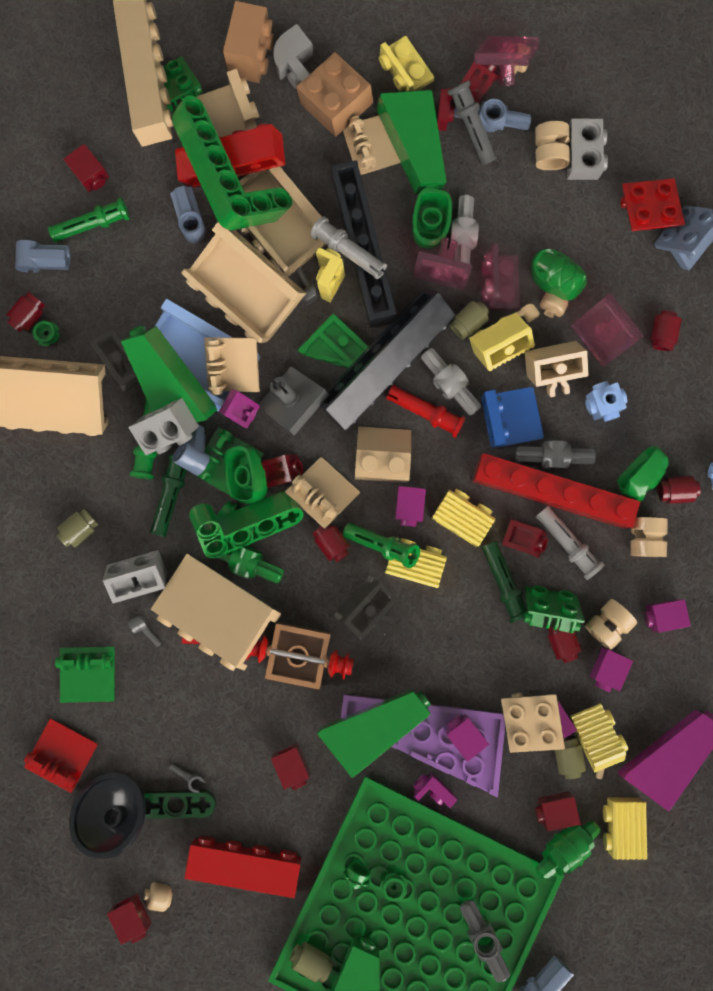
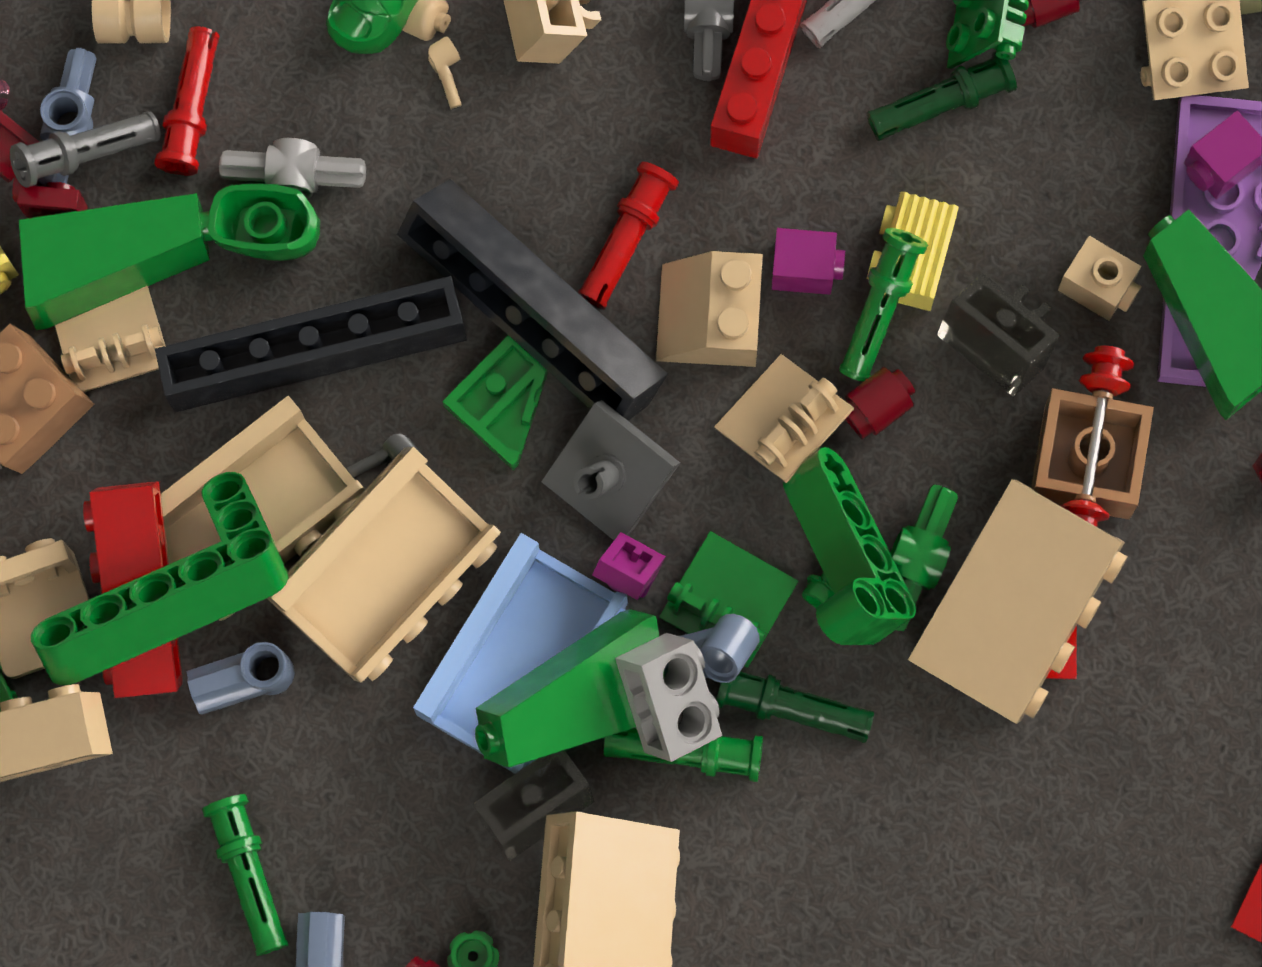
camera: 85 degrees left, 10 degrees down
(76, 528) = (861, 881): olive brick -> none
(86, 168) = (143, 878): dark red brick -> none
(86, 674) = (1143, 857): green hinge -> none
(135, 576) = (953, 758): light grey brick -> none
(140, 624) = (1042, 759): dark grey hand -> none
(231, 364) = (544, 580): tan hinge -> none
(245, 474) = (755, 554): green piece -> none
(282, 470) = (744, 497): dark red bracket -> none
(330, 273) = (361, 391): light yellow bracket -> none
(339, 242) = (313, 378): light grey pin -> none
(398, 665) = (1101, 279): none -> tan brick
(443, 268) = (362, 200): clear pink tile -> none
(451, 381) = (572, 190): light grey axle -> none
(463, 517) = (826, 168): light yellow brick -> none
(469, 319) = (457, 157): olive brick -> none
(491, 177) = (185, 122): none -> red pin
(502, 280) = (383, 105): clear pink bracket -> none
(502, 341) = (499, 98): light yellow brick -> none
(511, 417) = (639, 86): blue bracket -> none
(525, 539) = (862, 62): dark red bracket -> none

